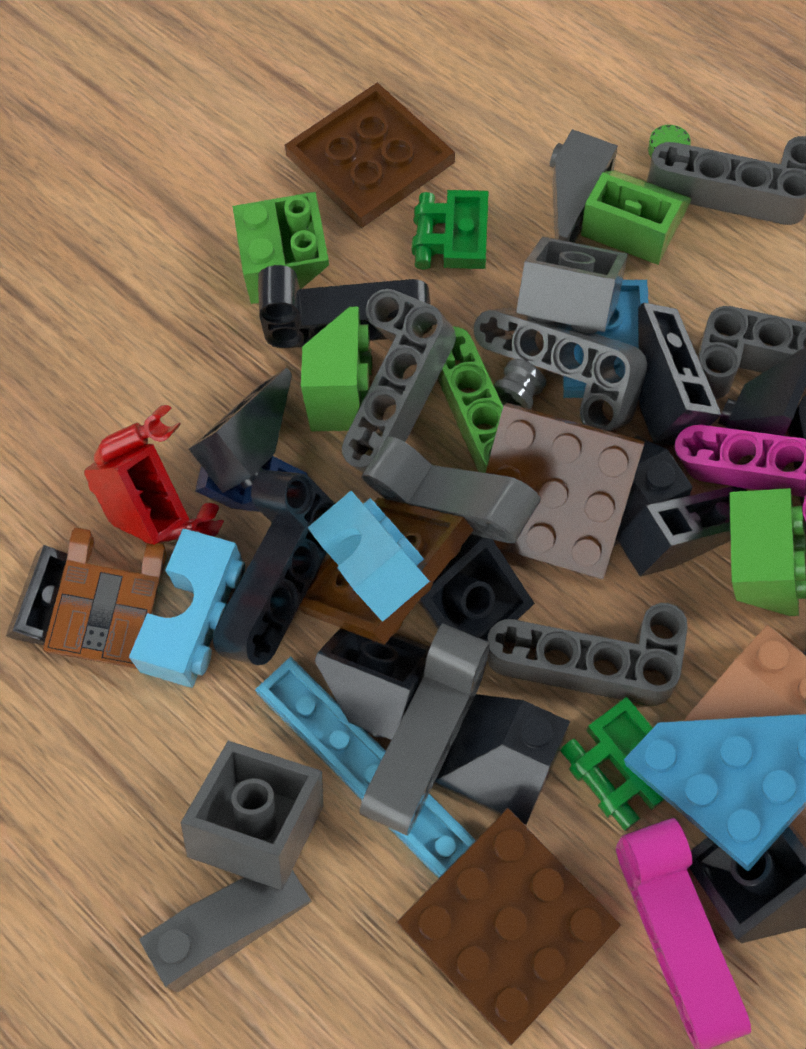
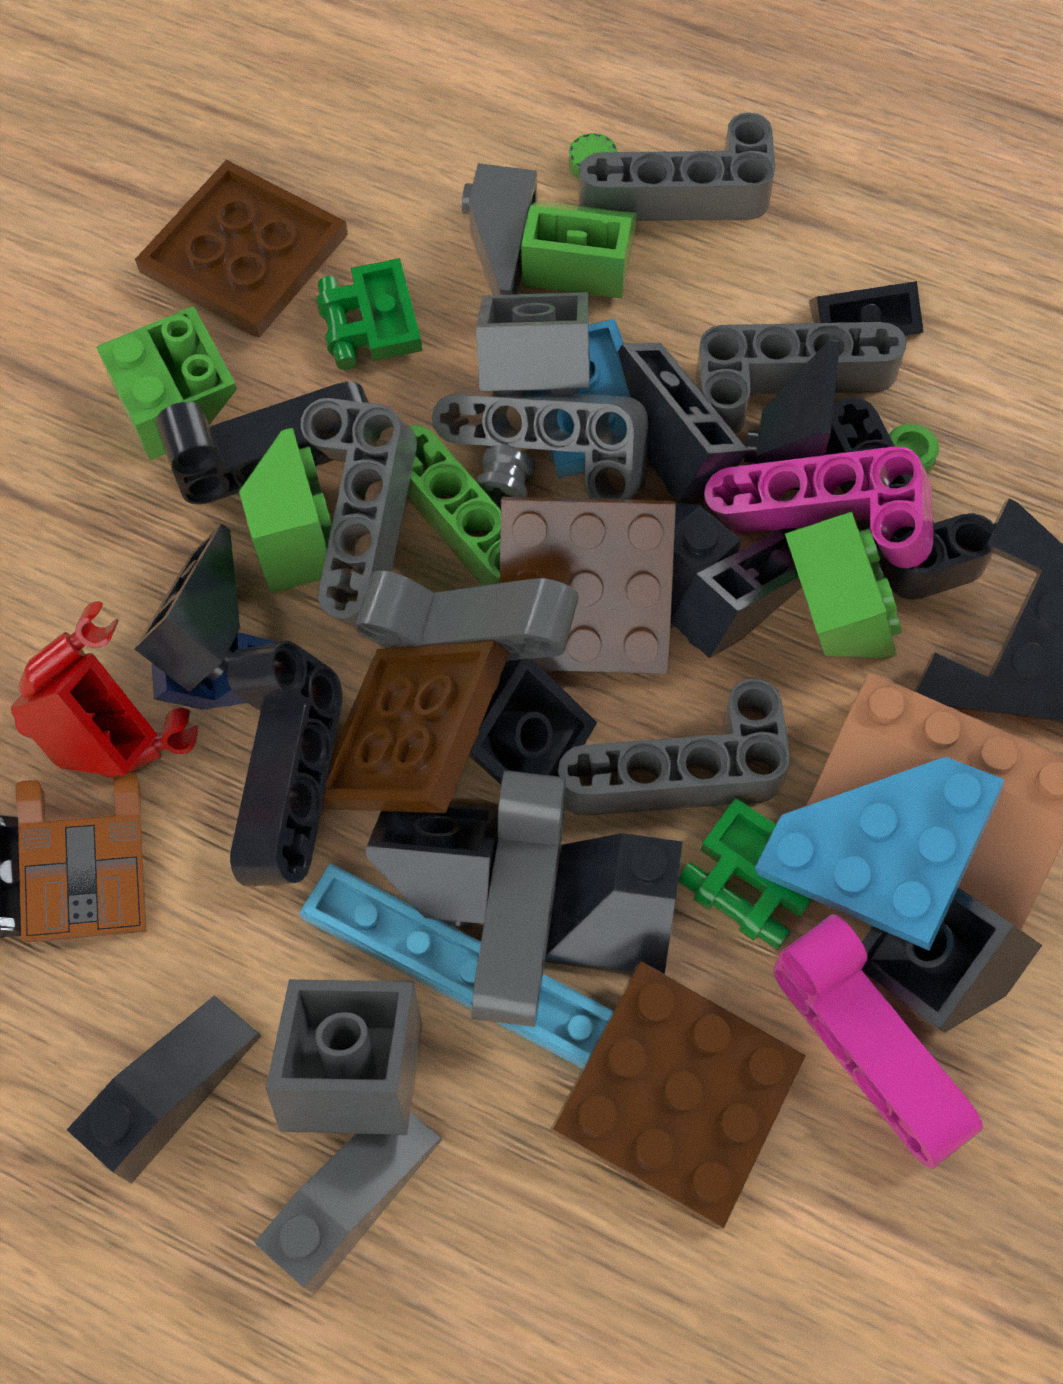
camera: 20 degrees left, 0 degrees up
(110, 796) = (162, 1089): none -> black slope
(179, 645) = (191, 888): medium azure arch -> none
(370, 553) = (396, 711): medium azure arch -> none

